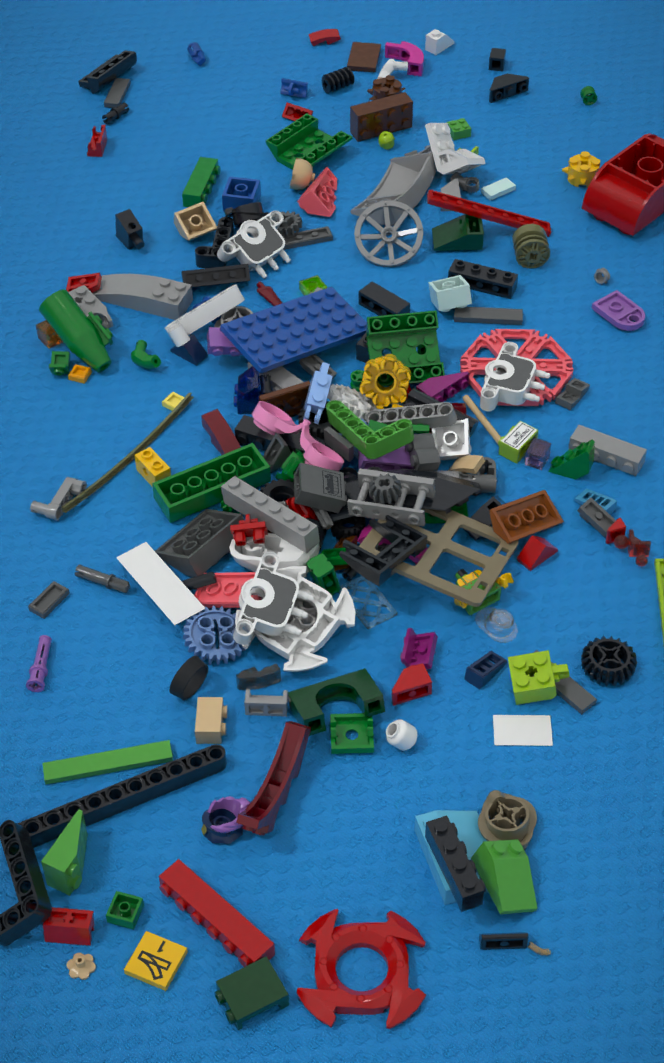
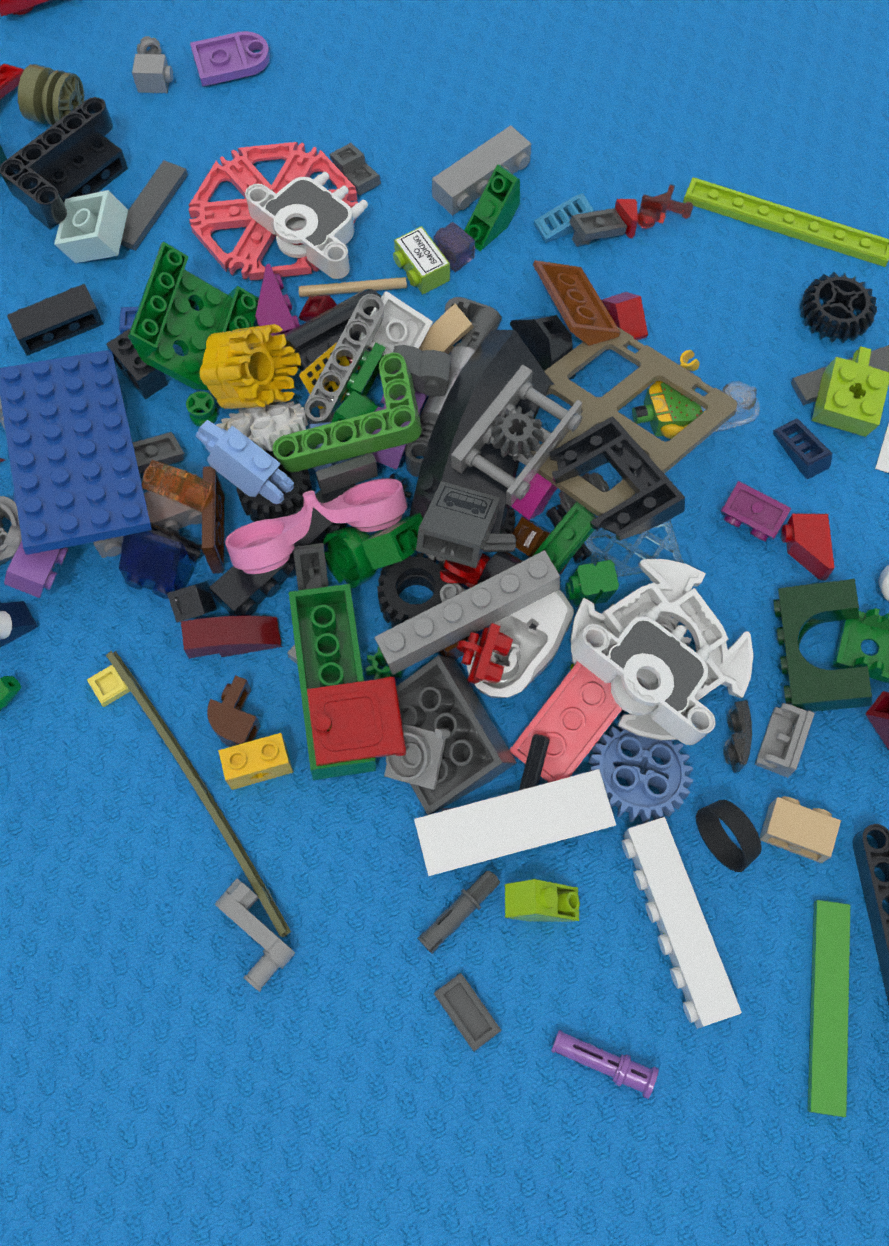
camera: 70 degrees left, 20 degrees up
(120, 612) = (541, 901): none -> lime slope
(131, 676) = (681, 923): none -> white brick
(173, 450) = (228, 719): none -> reddish brown brick
(182, 529) = (422, 759): none -> light grey hat
(189, 495) = (362, 718): none -> red container
(232, 411) = (192, 601): none -> black brick
(290, 372) = (176, 485): none -> clear orange brick
(482, 255) = (49, 152): none -> black beam
(582, 282) = (152, 73): none -> light grey brick

